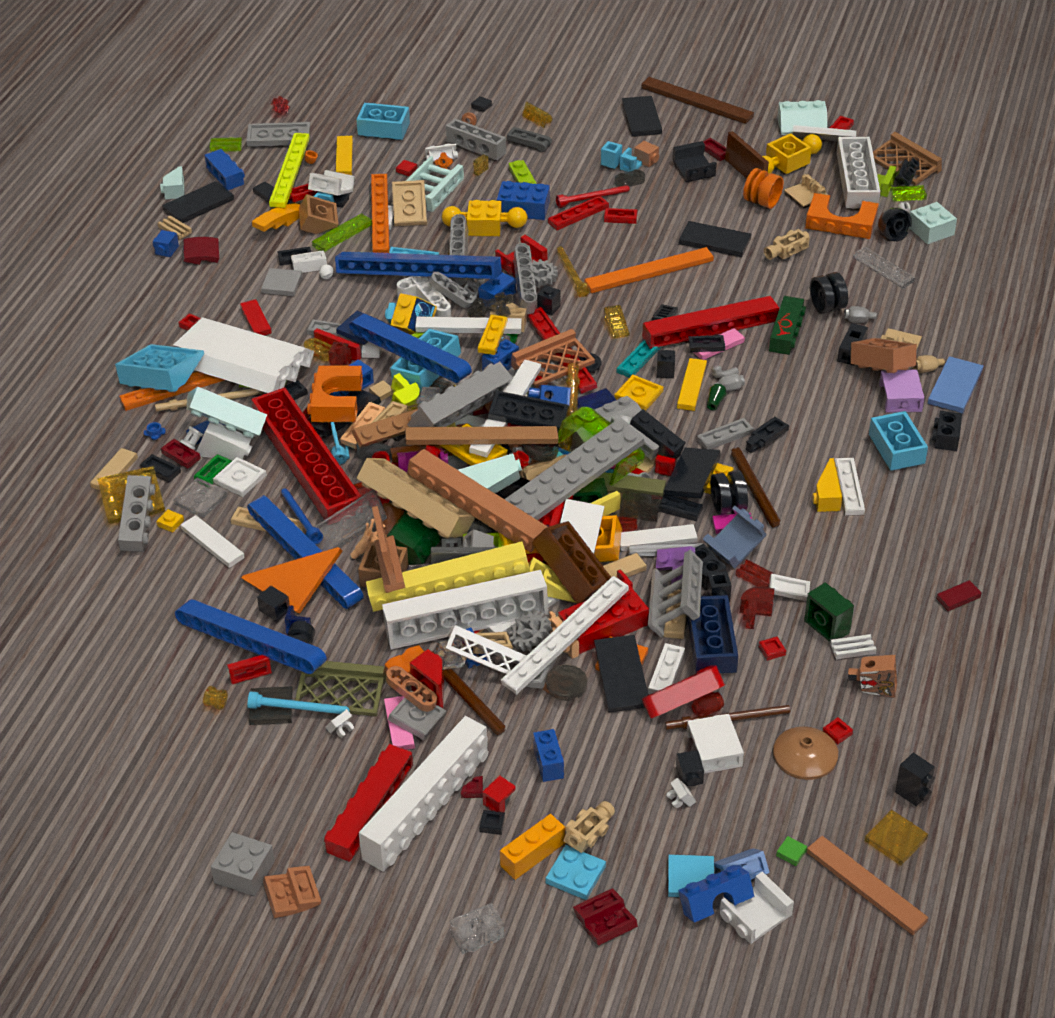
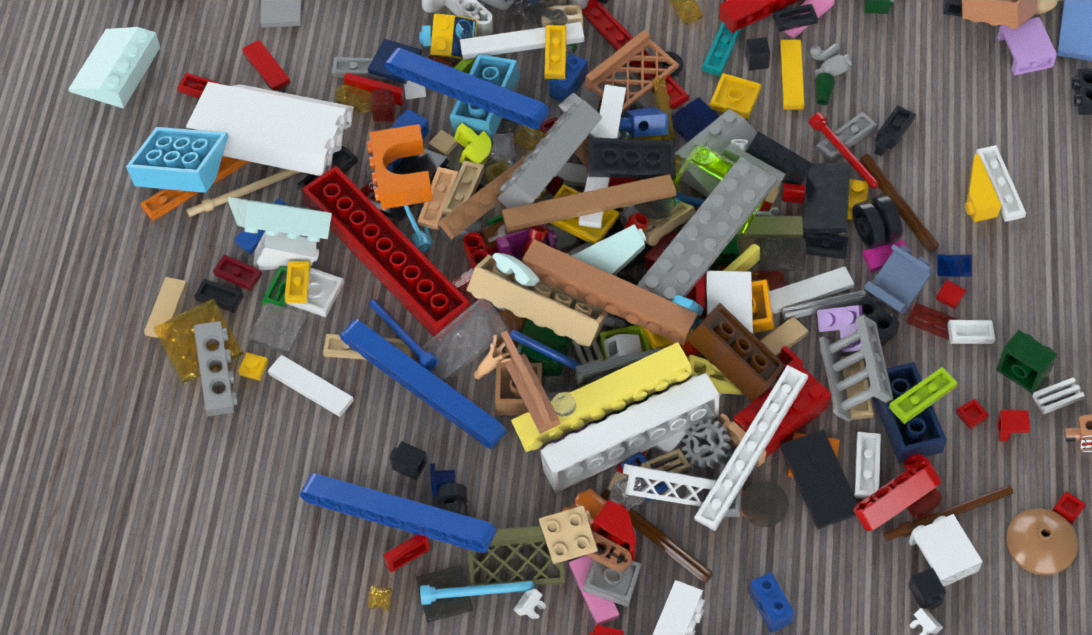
camera: 10 degrees left, 15 degrees up
(136, 301) = (116, 65): none -> light aqua slope
(154, 430) = (196, 241): blue plate -> none
(191, 438) = (240, 254): white bush -> none
(226, 465) = (297, 282): none -> yellow plate
(297, 577) = (424, 424): orange tile -> none
(386, 670) = (568, 534): none -> tan hinge
(404, 468) = (511, 265): none -> light aqua slope
(407, 533) = (544, 349): none -> blue piece
(412, 573) = (564, 404): none -> clear tile
(541, 517) = (688, 303): none -> medium azure tile
(703, 419) = (819, 123): none -> red piece
(719, 584) = (898, 348): black brick -> none
(726, 617) = (923, 395): none -> lime plate
(756, 602) = (945, 355): clear red brick -> none
(780, 559) = (950, 294): none -> red tile
(789, 536) = (954, 265): none -> clear blue panel
(804, 655) = (1012, 422): none -> red panel
(898, 440) = (1041, 116): medium azure brick -> none

